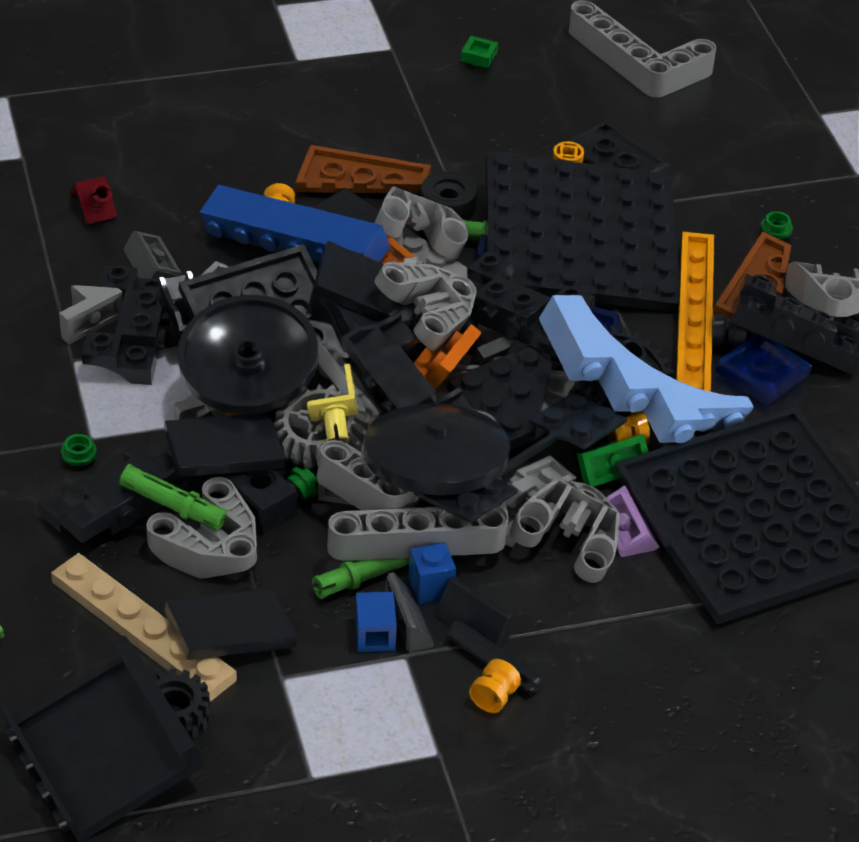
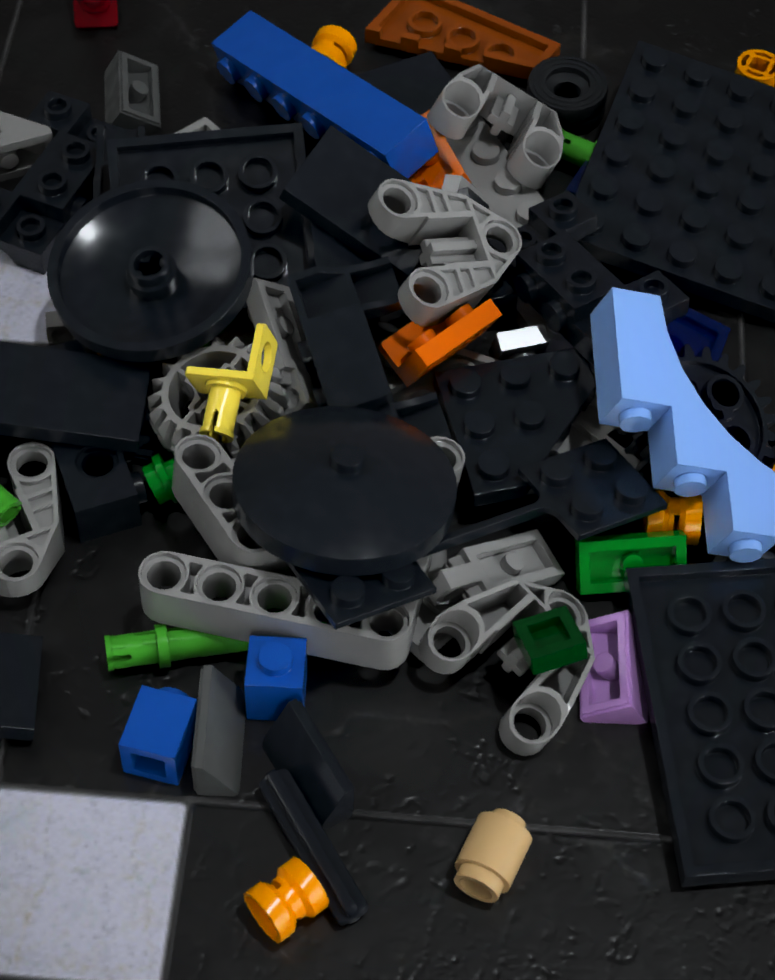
camera: 20 degrees right, 10 degrees up
(592, 505) = (550, 640): none -> dark green plate
(603, 633) = (492, 855): none -> tan brick

